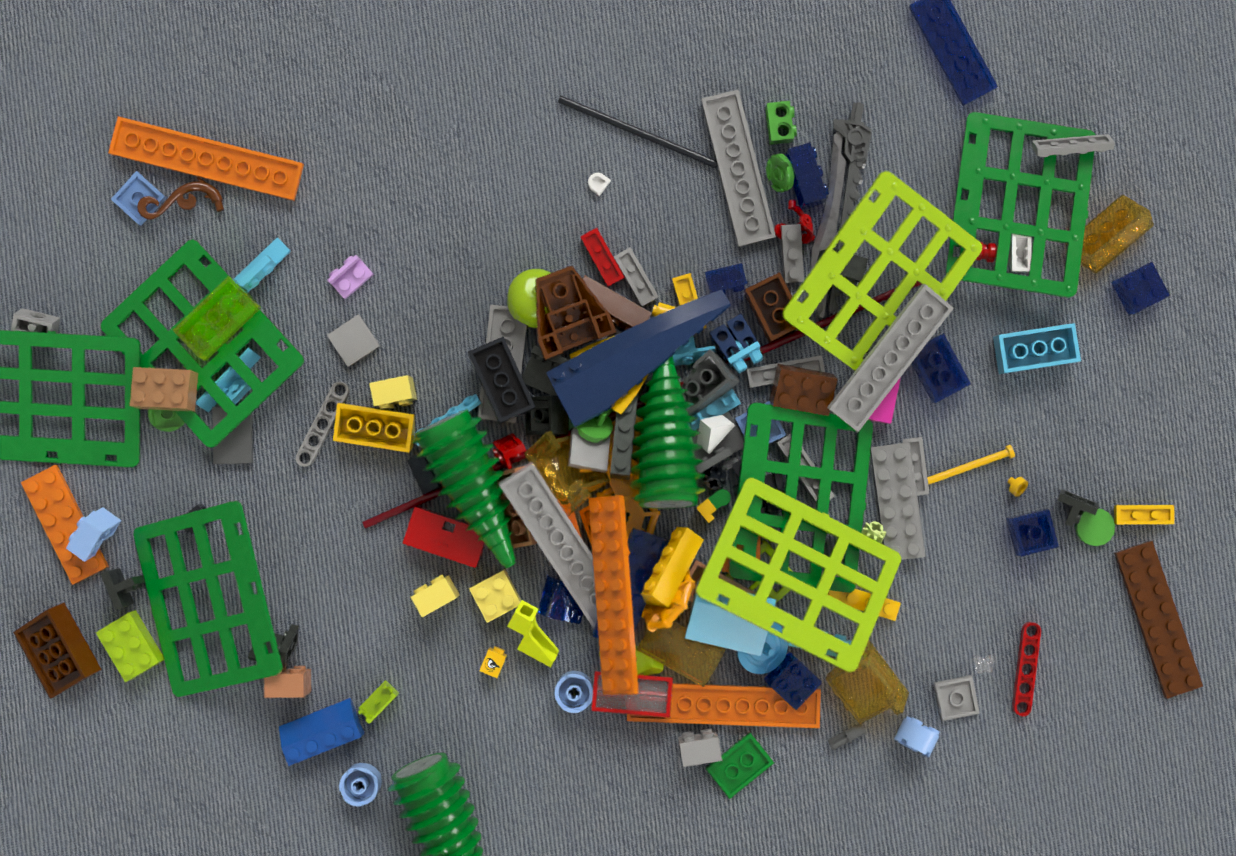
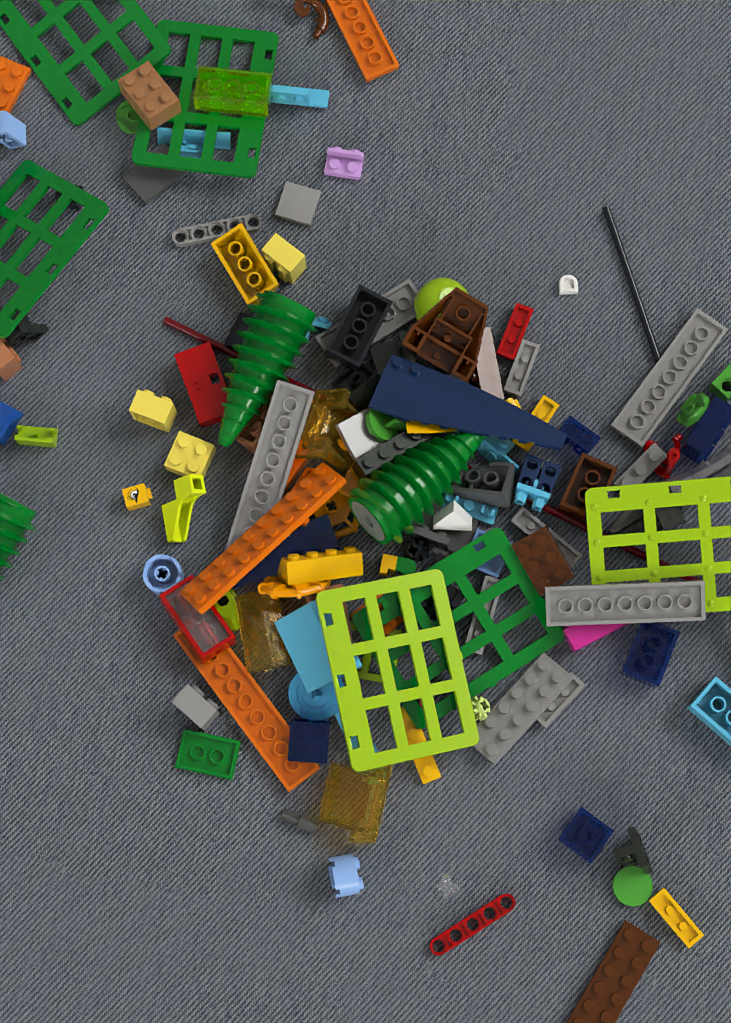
camera: 55 degrees right, 10 degrees down
(507, 448) = (312, 374): red bracket -> none
(558, 602) = (222, 510): clear blue bracket -> none
(956, 698) = (402, 886): light grey tile -> none
(1008, 452) = (596, 744): yellow bar -> none
(1017, 486) = (611, 794): yellow tile -> none

